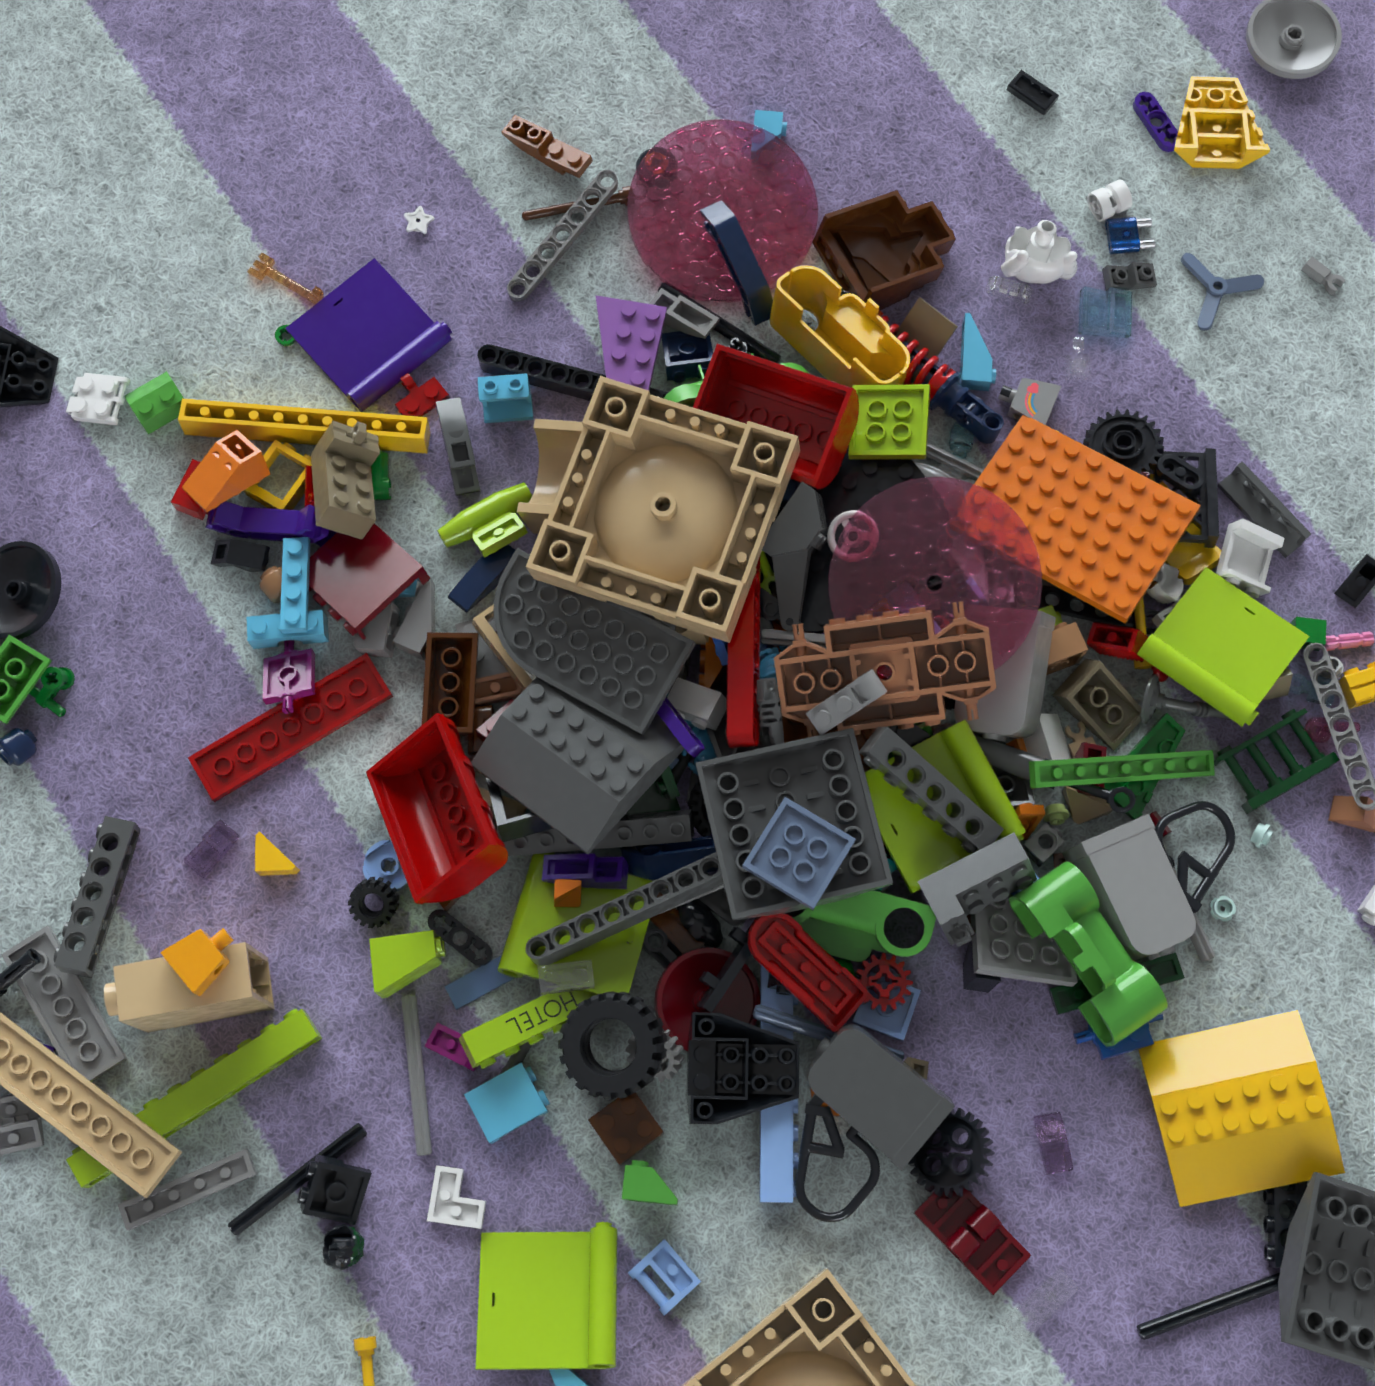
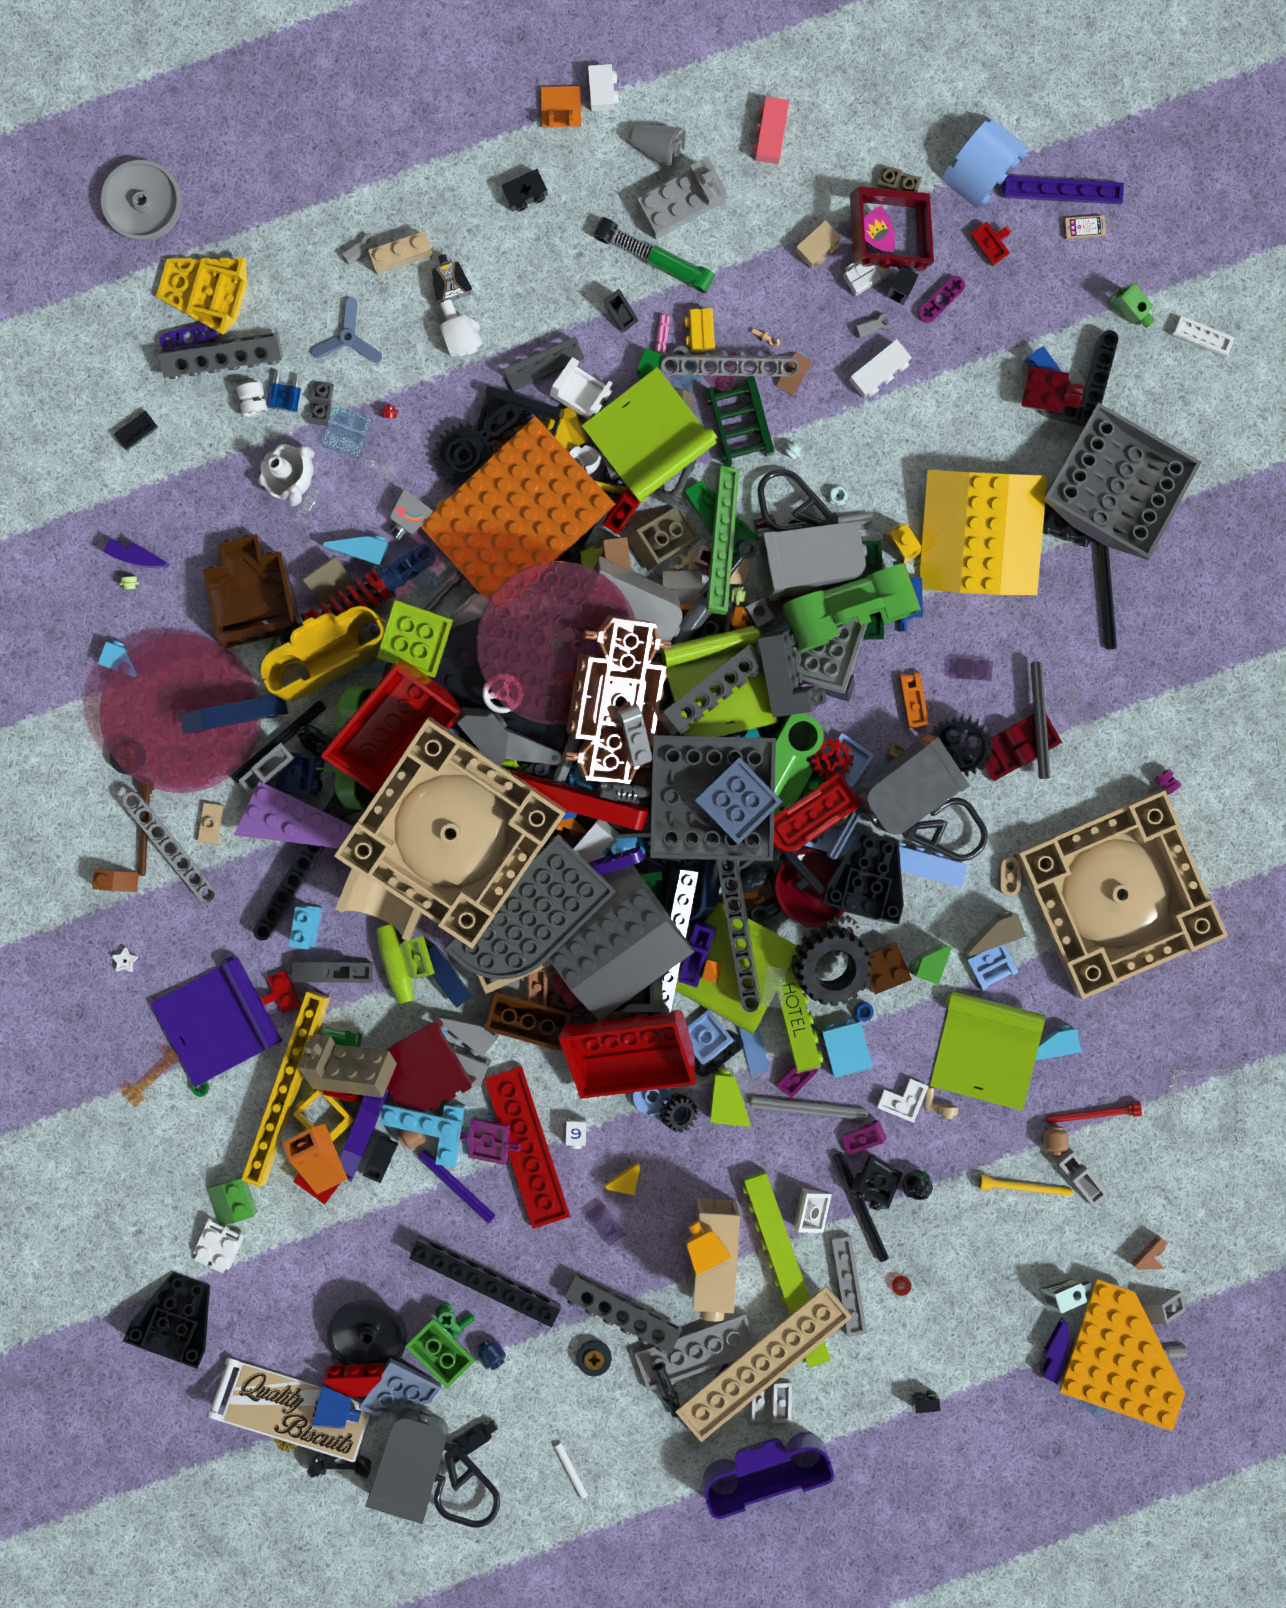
camera: 80 degrees left, 15 degrees up
(42, 880) = (592, 1351): none -> black wheel
(44, 1338) = (925, 1402): none -> black piece
(109, 717) = (485, 1281): none -> black brick
(192, 1263) = (901, 1292): none -> clear red plate
(222, 656) = (456, 1186): none -> dark purple axle
(278, 1112) = (812, 1211): none -> white slope
(320, 781) = (576, 1133): none -> white brick
(392, 1158) = (864, 1138): none -> magenta plate
(452, 1263) = (946, 1110): none -> tan plate
(479, 915) = (708, 1037): none -> light blue plate
(509, 187) = (115, 880): none -> dark orange slope
(544, 147) = (86, 842): dark orange slope -> none
(570, 1115) = (868, 1016): none -> blue plate
(602, 274) = (210, 823): none -> tan plate
(715, 1272) = (997, 932): none -> dark tan slope
(792, 1270) = (1012, 876): none -> tan plate
(857, 124) = (129, 582): none -> yellowish green plate
(890, 121) = (134, 555): none -> dark purple slope
(989, 1076) = (914, 700): none -> orange plate
(1014, 1254) = (1040, 720): none -> dark grey axle
(1125, 104) = (171, 368): none -> dark grey brick
(1145, 351) = (388, 411): none -> red plate
(1191, 1006) = (903, 542): none -> yellow torso
(1267, 404) = (459, 332): none -> white piece
(1322, 380) = (450, 280): none -> torso
(1336, 318) = (400, 252): none -> tan brick

